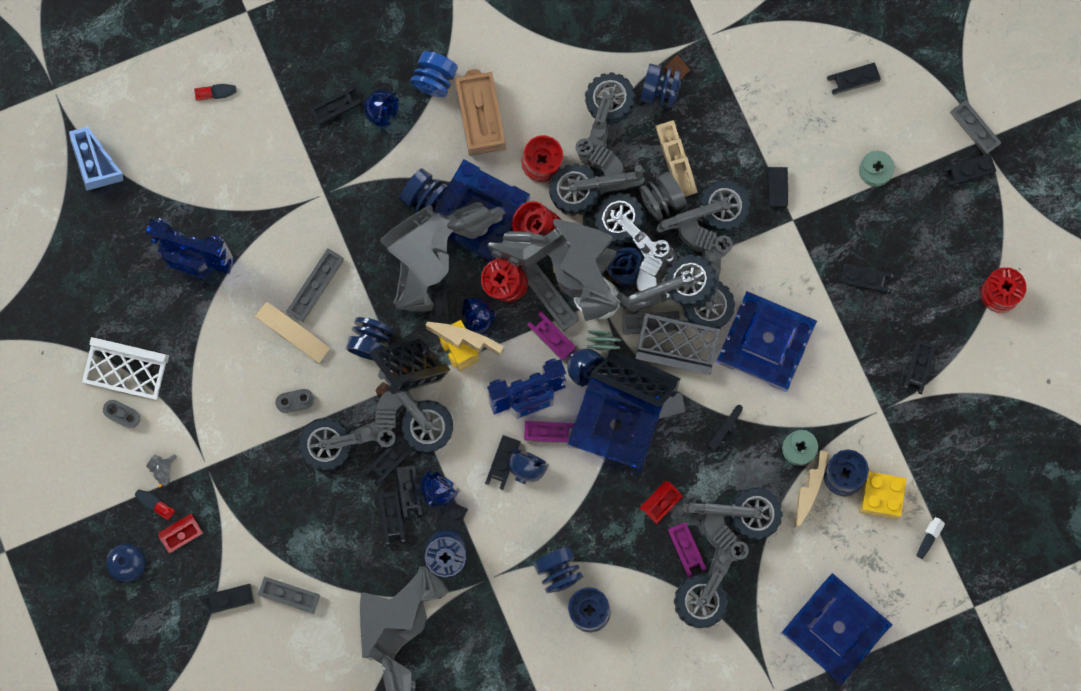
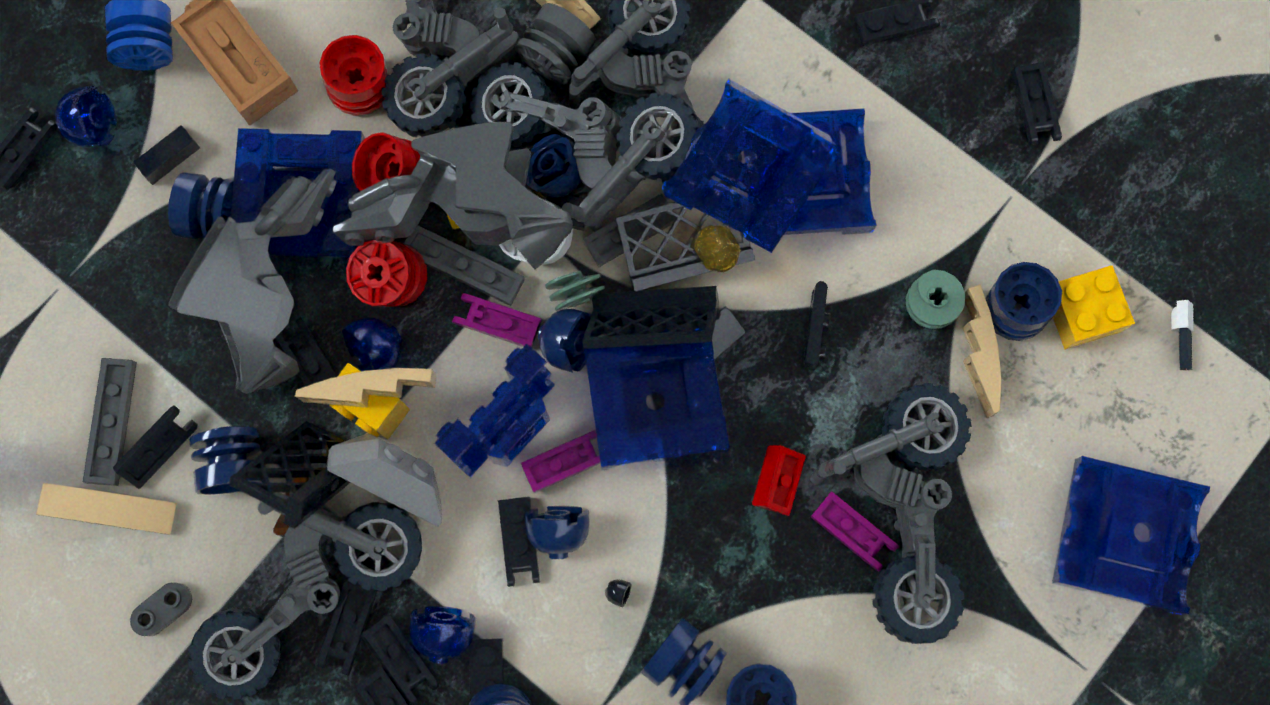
camera: 25 degrees left, 0 degrees up
(332, 312) = (154, 448): none -> black hinge
(415, 149) = (166, 155): none -> black slope
(452, 390) = (388, 474): none -> light grey wedge
(542, 517) = (618, 592): none -> black hinge
(691, 358) = (717, 248): none -> clear yellow head
(747, 335) = (782, 176): none -> clear blue piece

